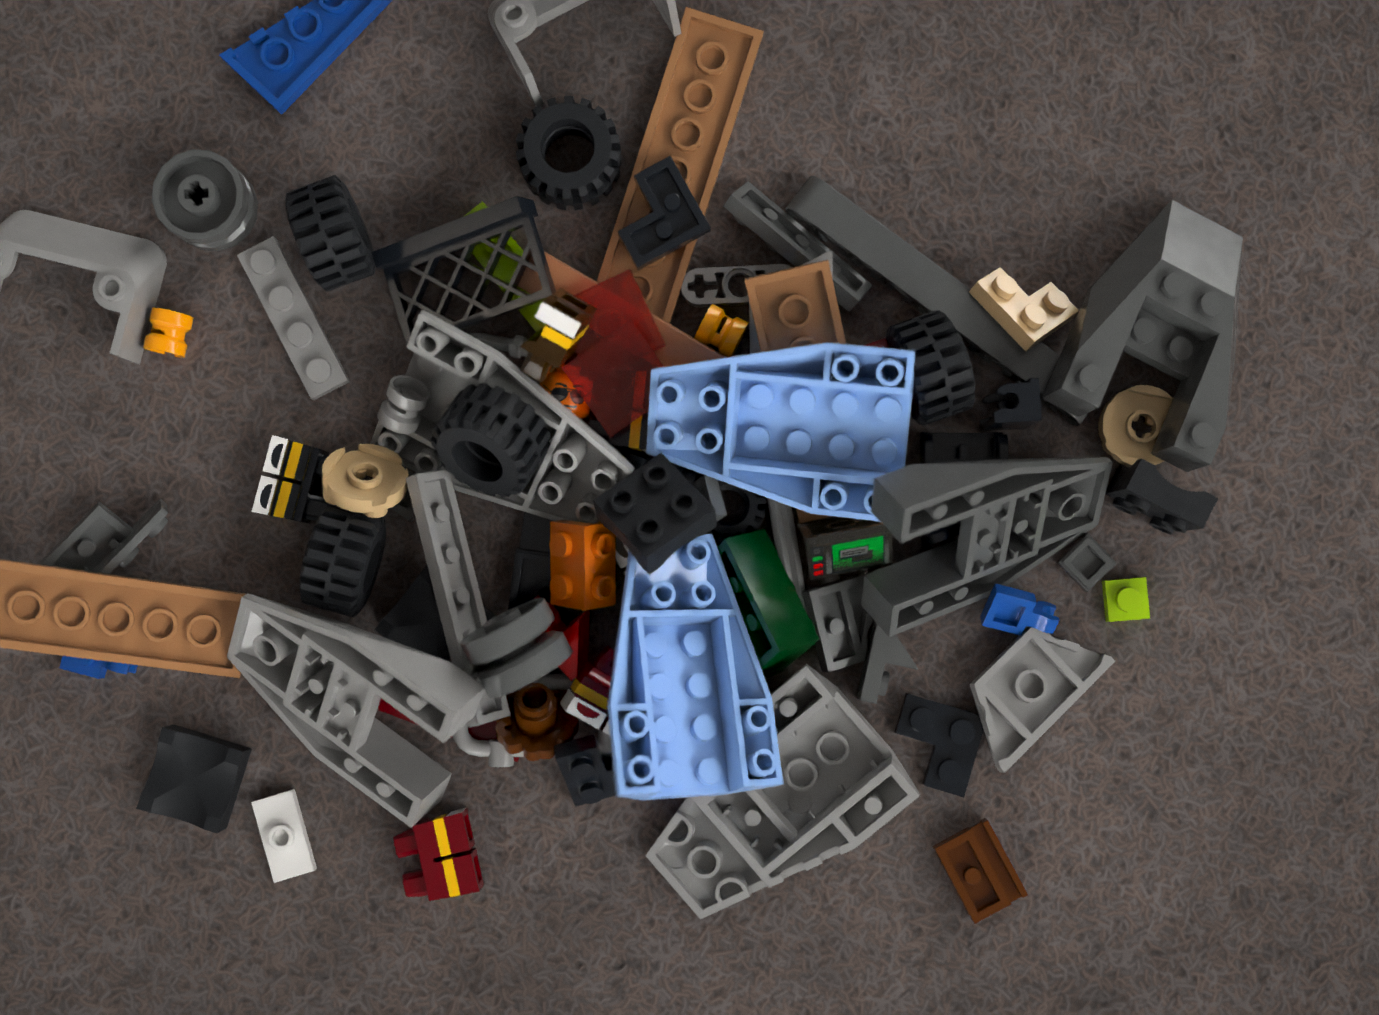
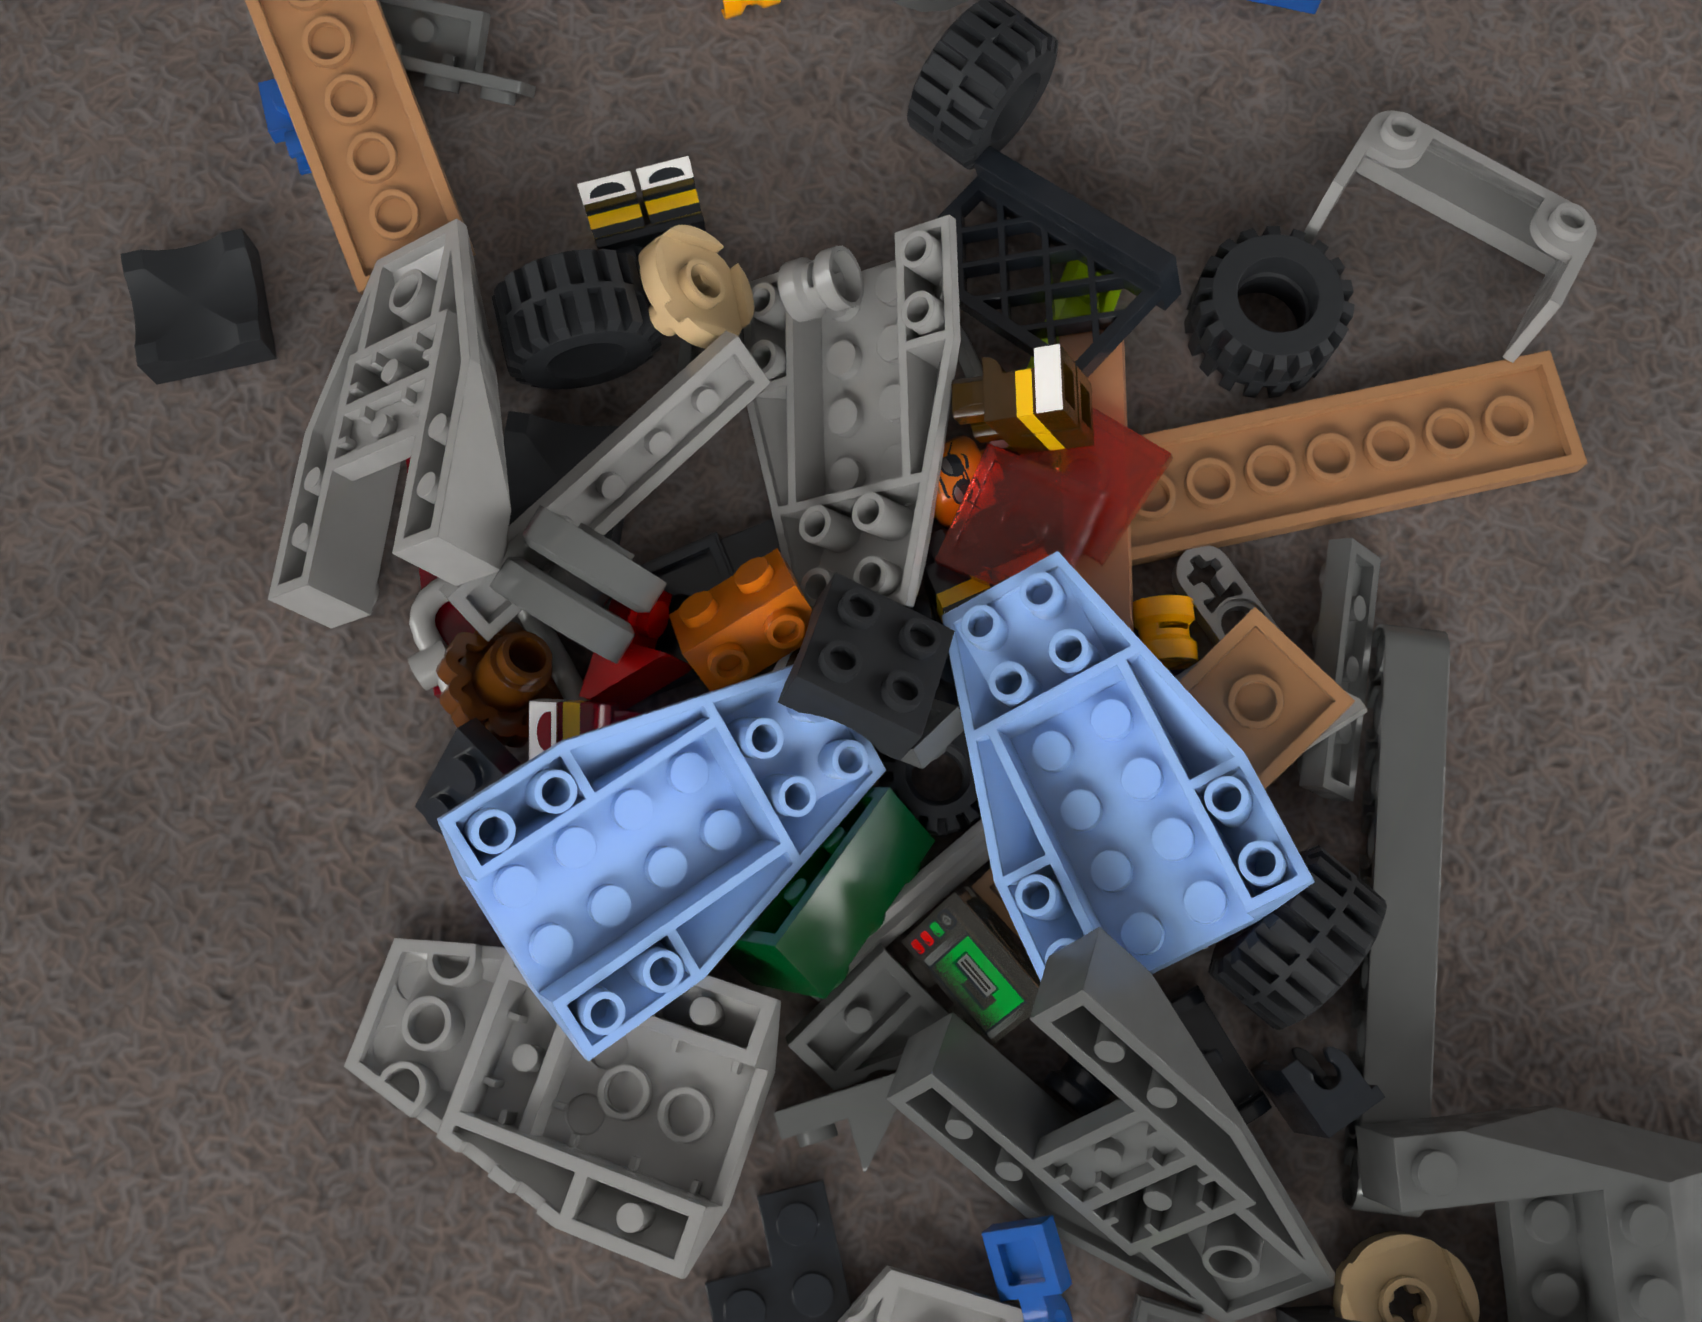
camera: 60 degrees right, 10 degrees down
(284, 835) = (182, 458): white plate -> none
(293, 318) = (849, 114): light grey plate -> none
(441, 875) = (224, 673): dark red hips -> none
(491, 440) = (838, 403): black tyre -> none
(673, 219) = (1268, 484): black plate -> none
(1023, 316) = (1449, 1027): tan plate -> none

